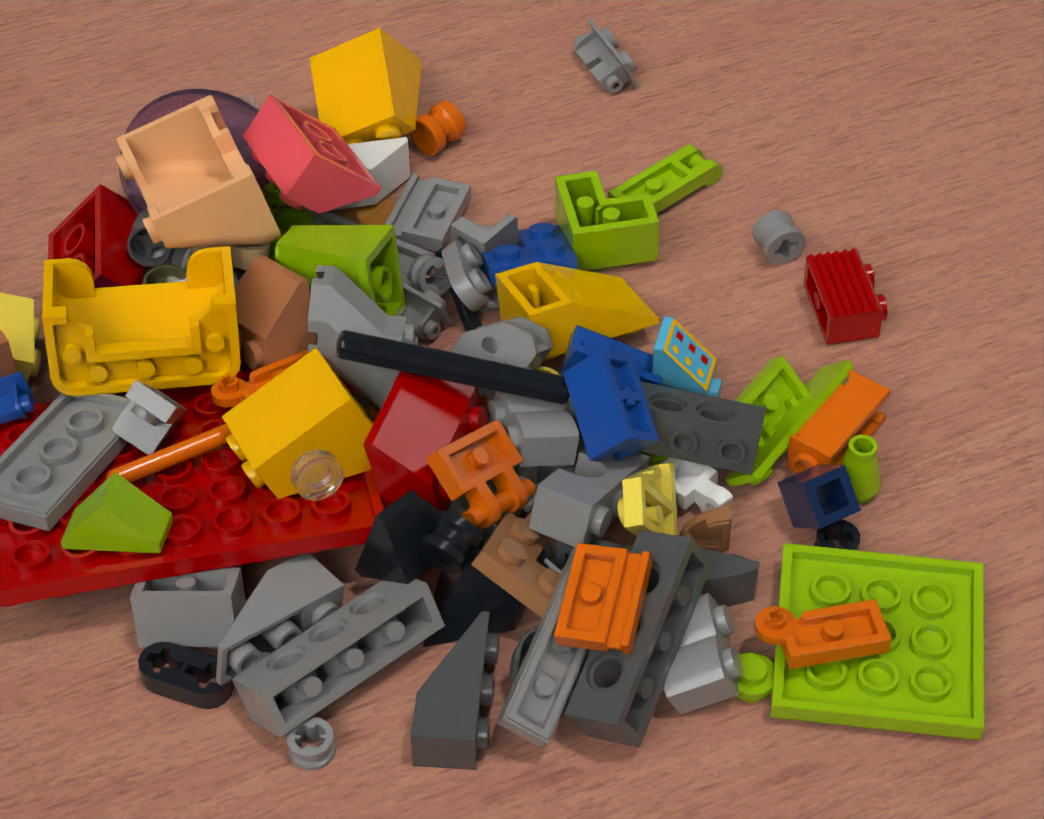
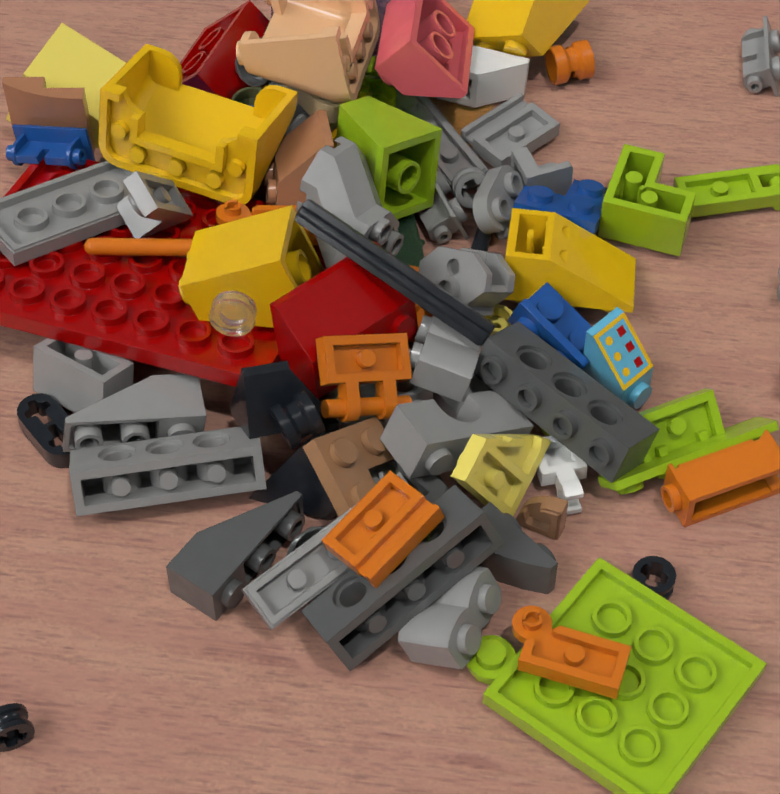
camera: 30 degrees right, 5 degrees up
(118, 520) = (63, 282): lime slope -> none
(309, 757) = (102, 547): light grey bush -> none
(610, 405) = (510, 364): blue hinge -> none
(819, 496) = (658, 530): dark blue brick -> none
(863, 467) = (714, 526): lime cone -> none

